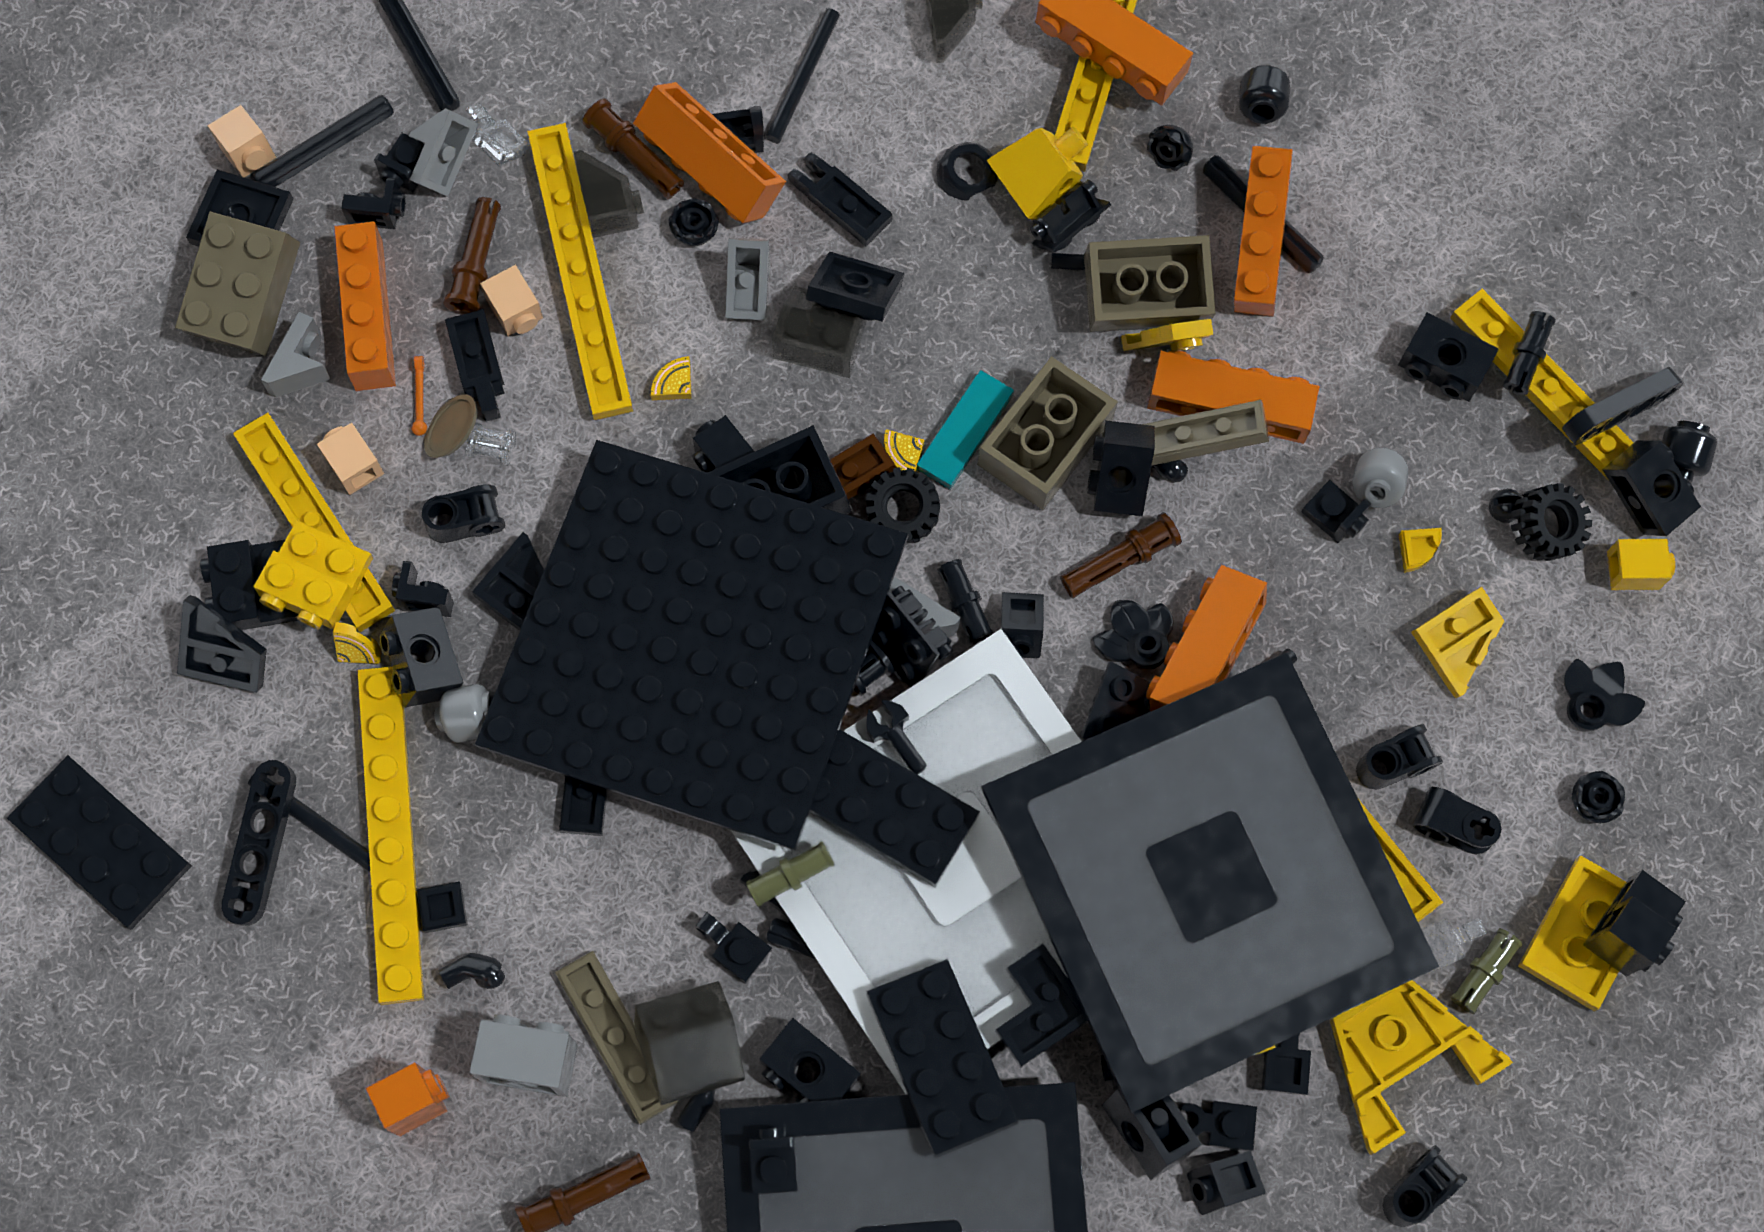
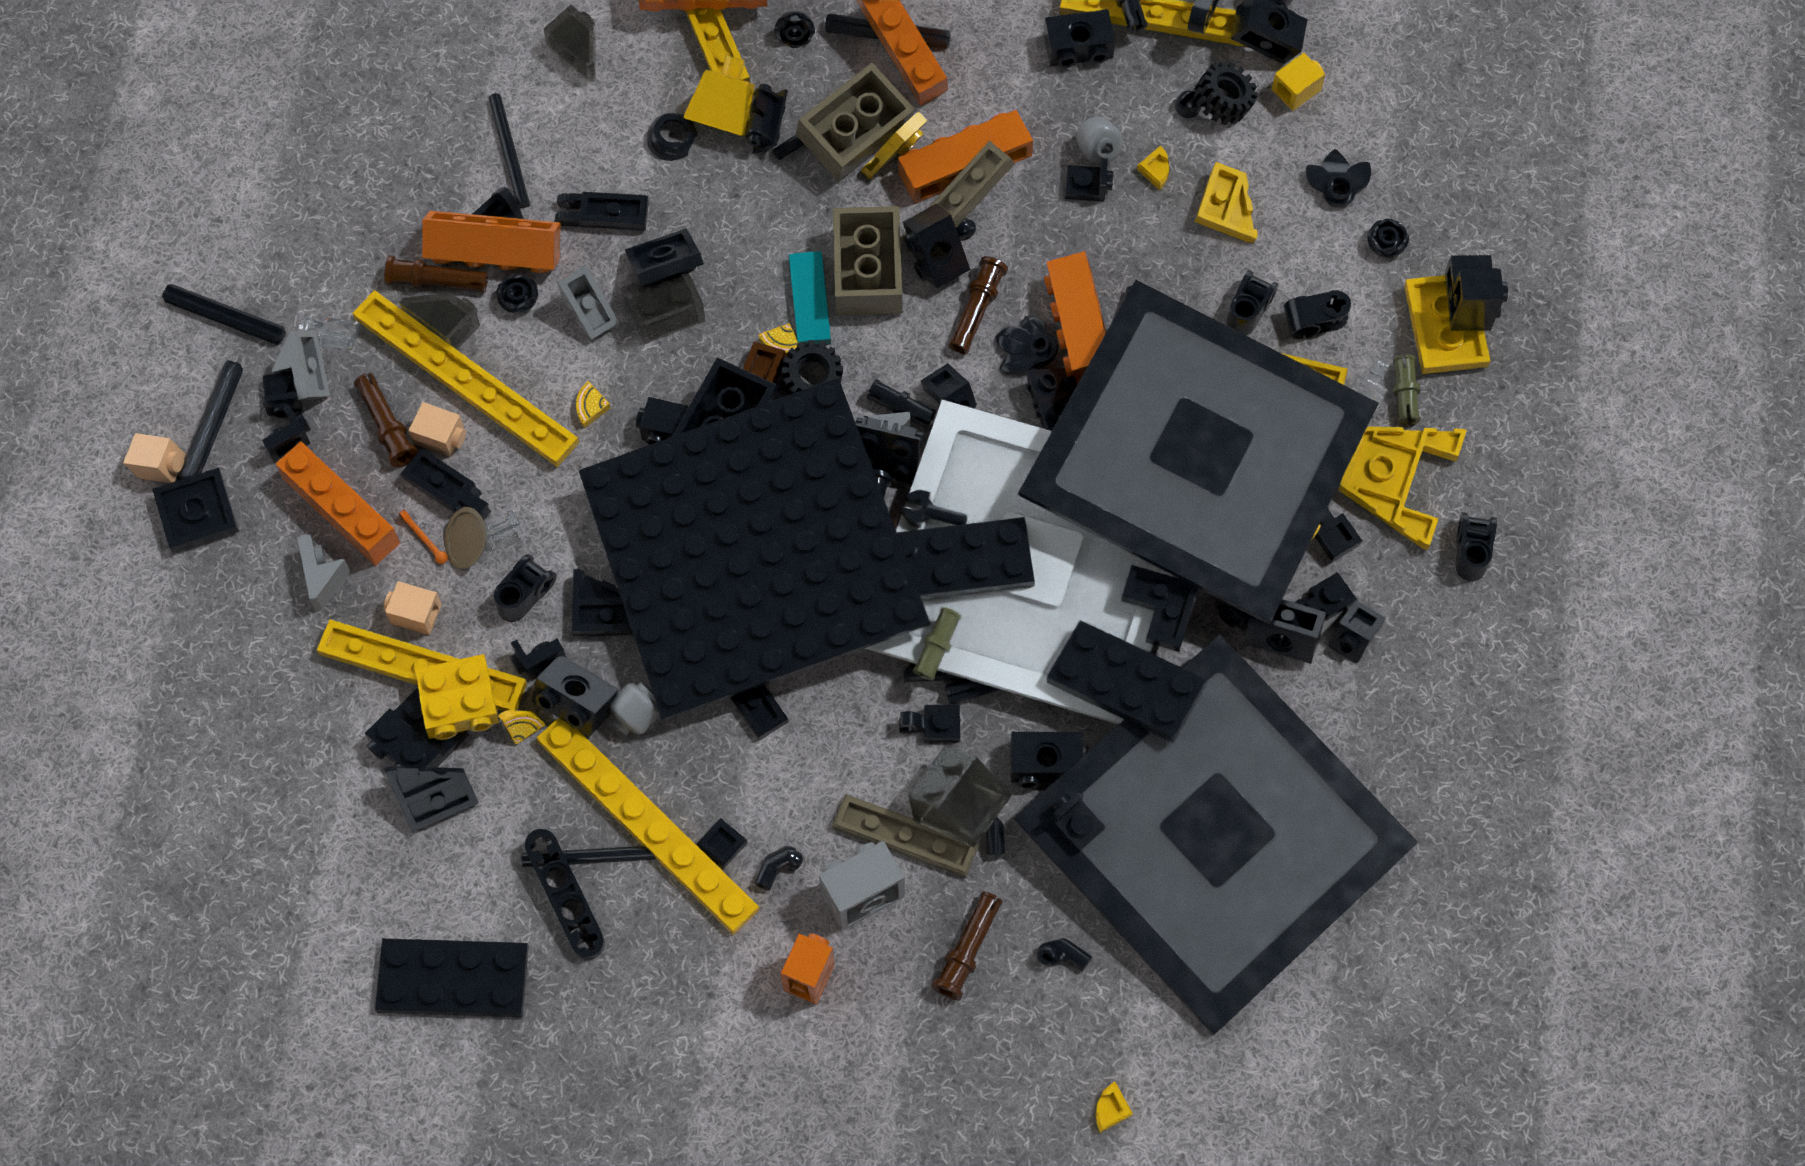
camera: 35 degrees left, 5 degrees down
(237, 284) = (237, 549): dark tan brick -> none

